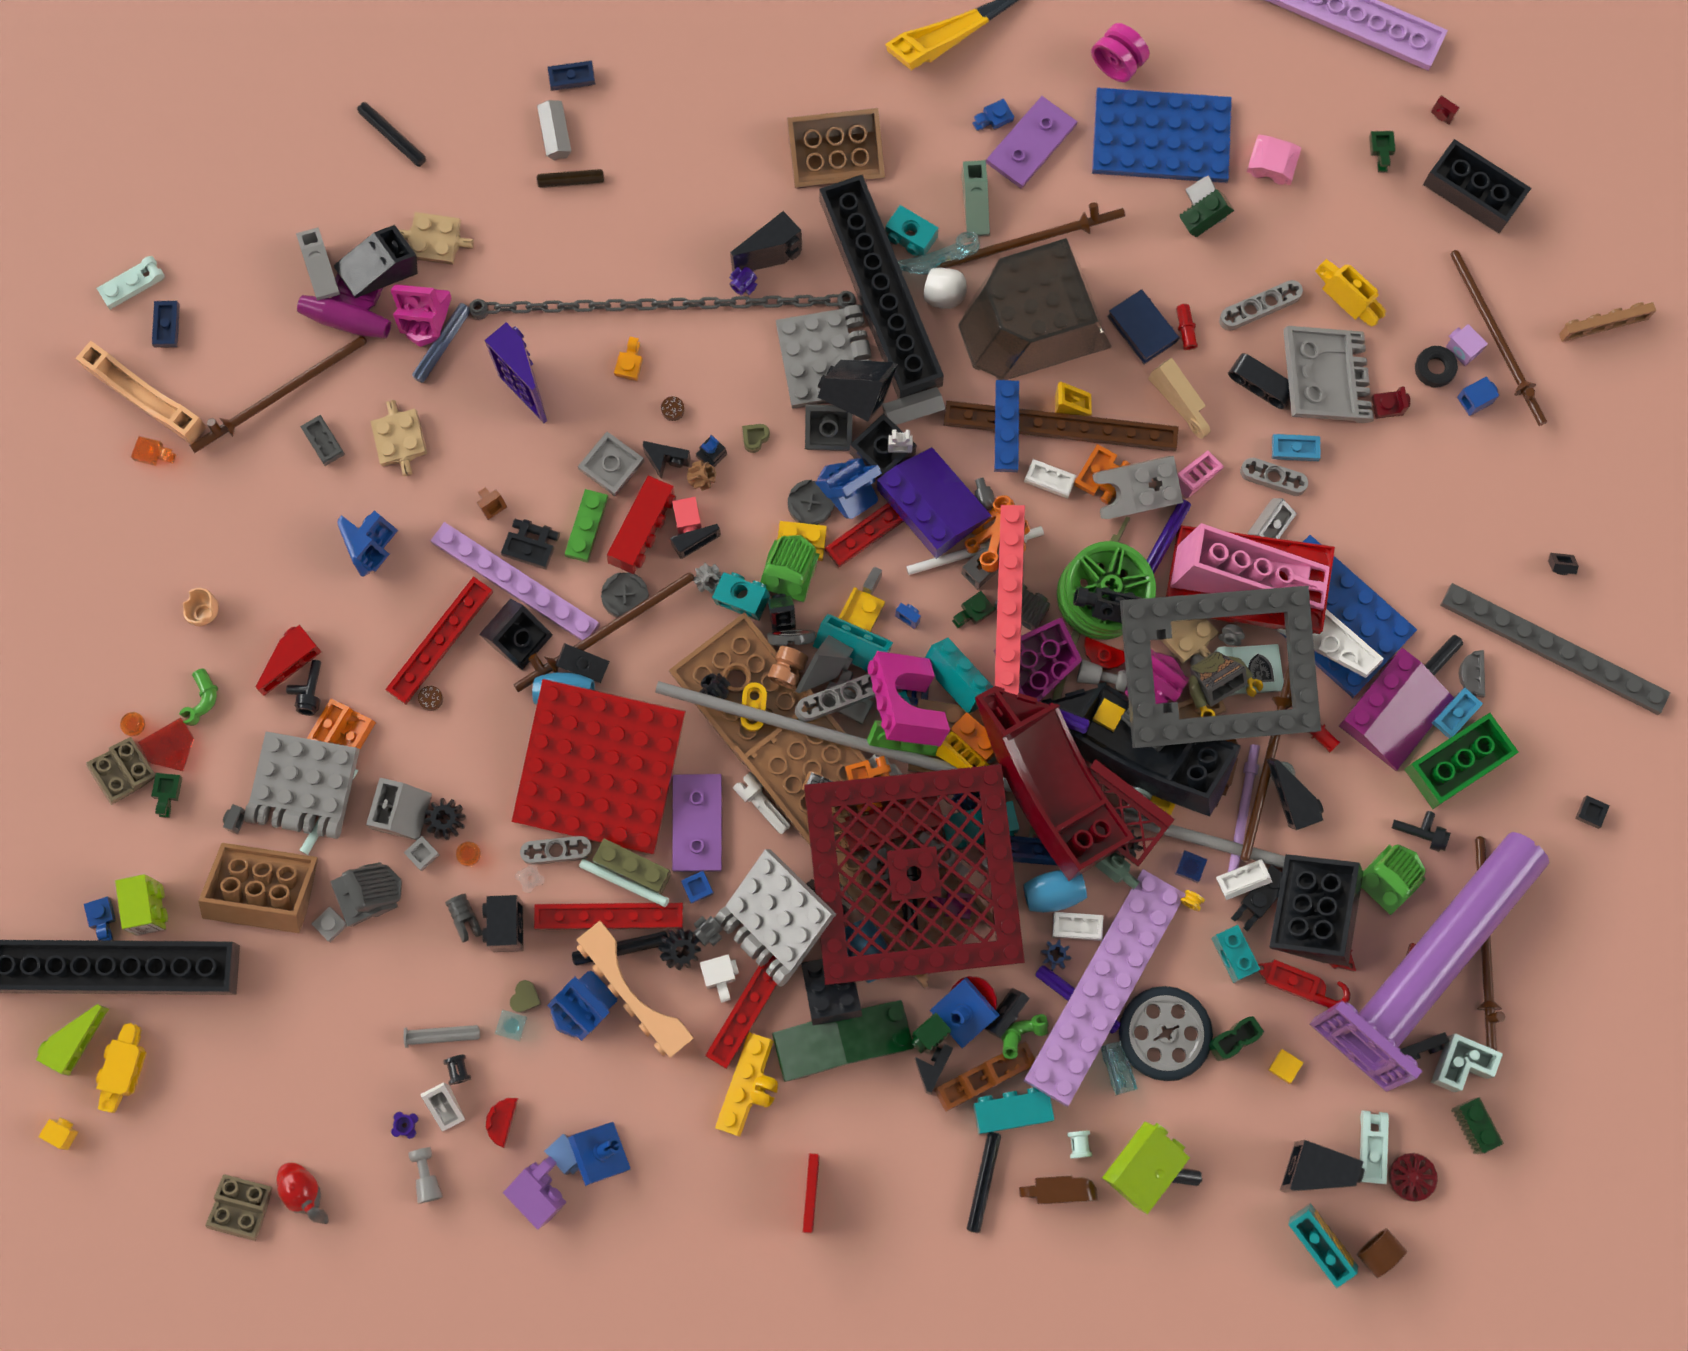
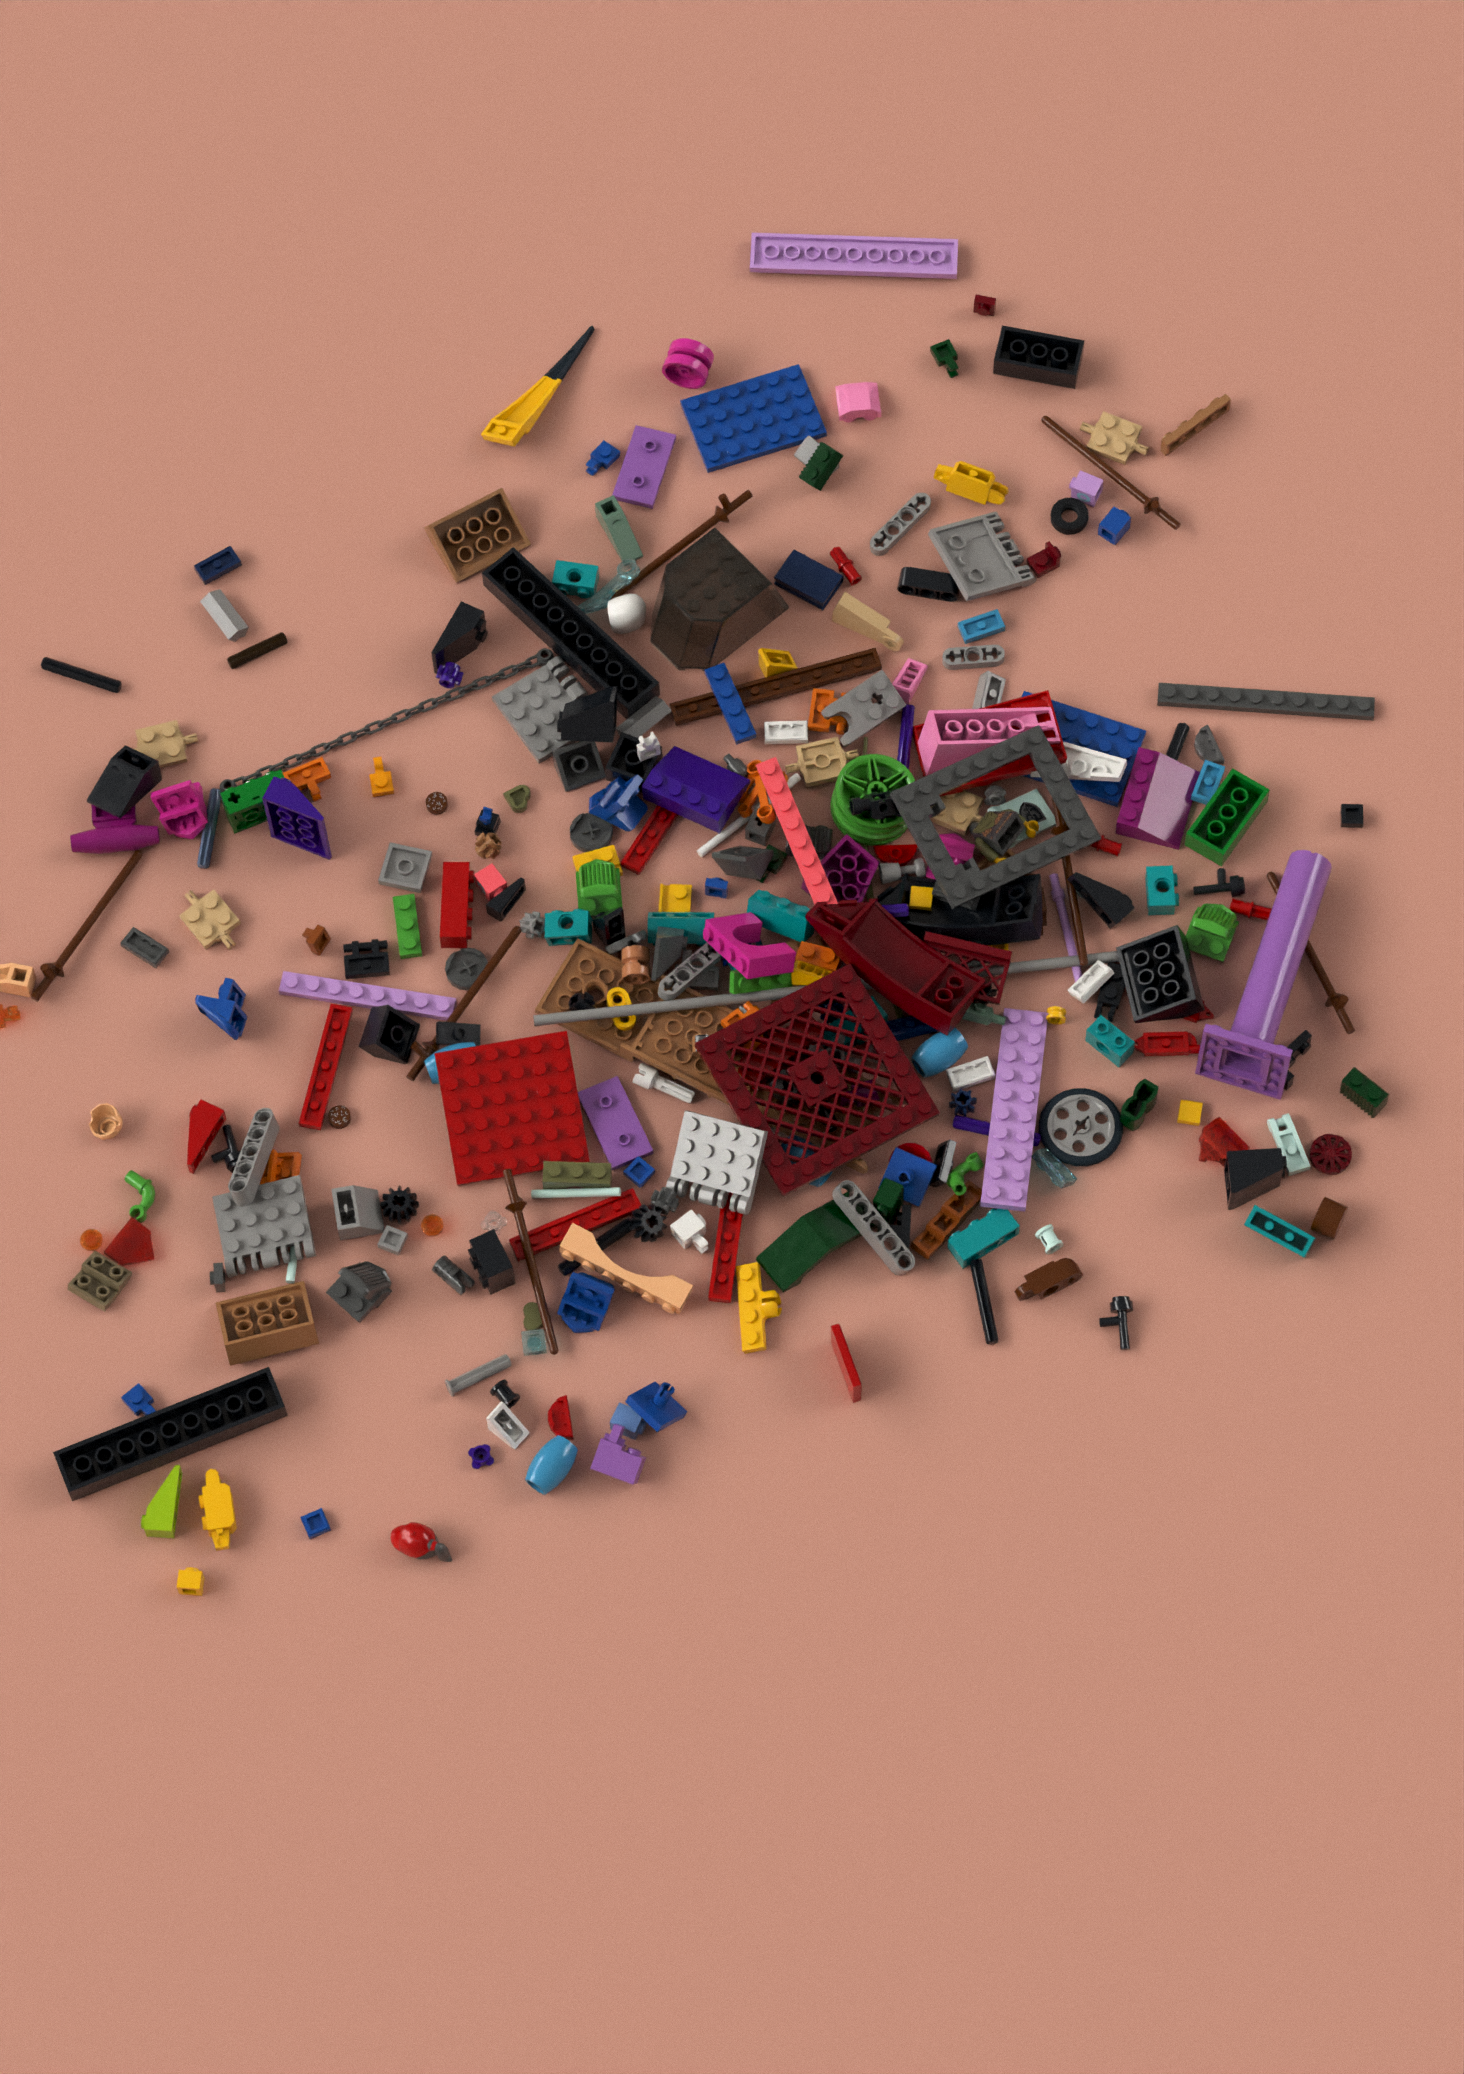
camera: 20 degrees left, 10 degrees down
(141, 904) = (174, 1372): lime brick -> none
(165, 789) = (147, 1279): dark green plate -> none
(211, 1124) = (315, 1523): none -> blue tile
(239, 1207) = (372, 1577): dark tan slope -> none
(317, 264) = (72, 803): light grey slope -> none
(321, 709) = (253, 1157): none -> light grey beam
(329, 924) = (340, 1328): light grey plate -> none
(427, 1186) = (522, 1492): light grey piece -> none
(467, 1169) = (551, 1464): none -> dark azure piece
(475, 328) = (245, 803): none -> green piece
(538, 858) = (488, 1194): light grey beam -> none
(555, 877) = (516, 1207): none -> reddish brown piece
(559, 329) = (309, 776): none -> orange plate
(660, 454) = (443, 843): black slope -> none
(830, 1001) = (791, 1208): black plate -> none
(872, 580) = (673, 871): flat silver tile -> none
(911, 1066) = (872, 1216): none -> light grey beam
(947, 599) = (744, 861): none -> dark grey slope
(1072, 524) = (820, 761): none -> tan plate
(1122, 1253) = (1120, 1305): none -> black piece
(1149, 1167) = (1112, 1229): lime piece -> none
(1191, 866) = (1043, 990): clear blue plate -> none
(1303, 1115) = (1217, 1140): none -> clear red slope
(1352, 823) = (1161, 902): none -> teal brick
(1444, 871) = (1249, 909): none -> red axle
(1460, 1058) = (1330, 1042): light aqua brick -> none
(1517, 302) = (1114, 438): none -> tan plate
(1563, 563) = (1243, 631): black plate -> none

